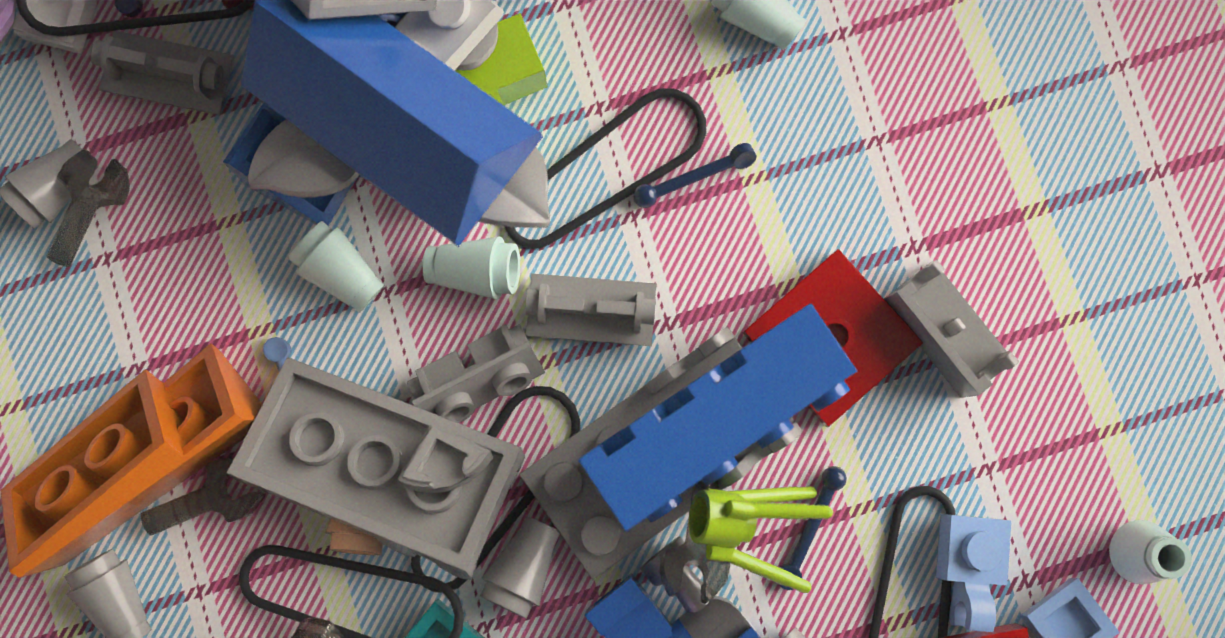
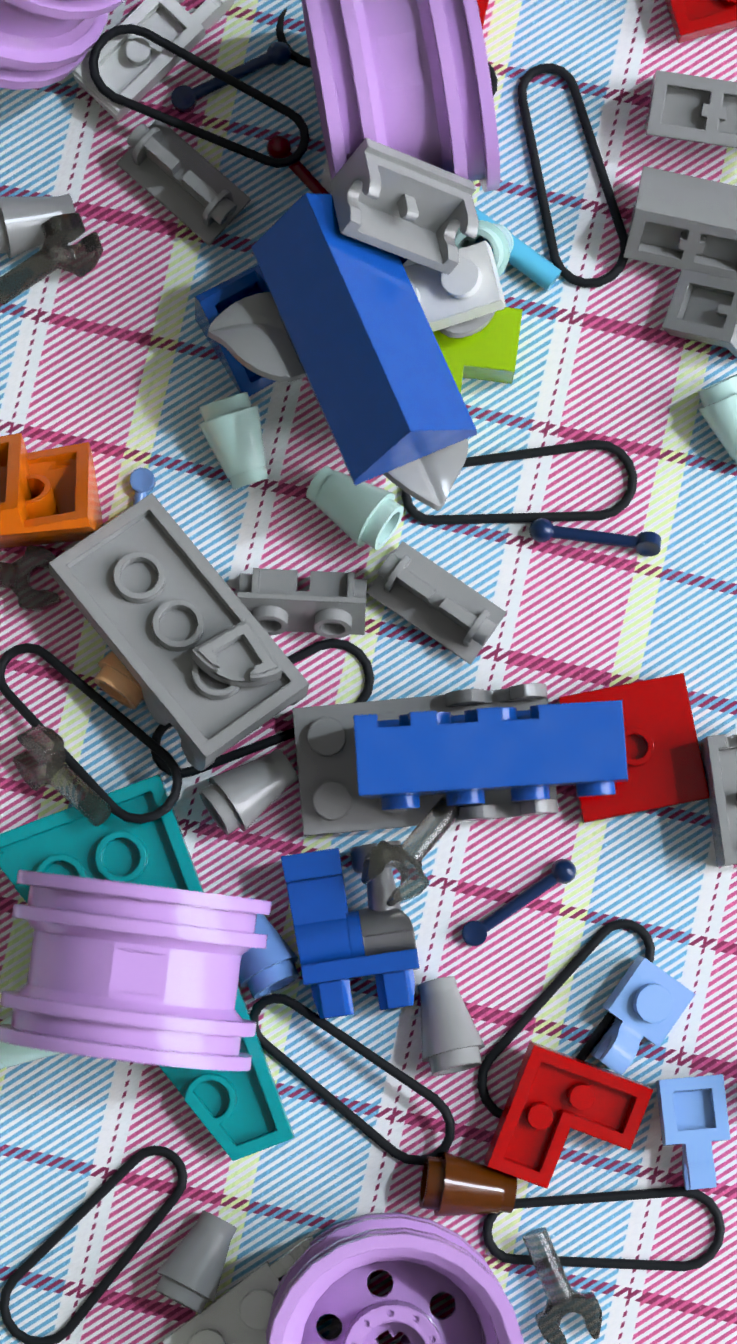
camera: 30 degrees right, 0 degrees up
(730, 517) = (451, 845): lime plant -> none

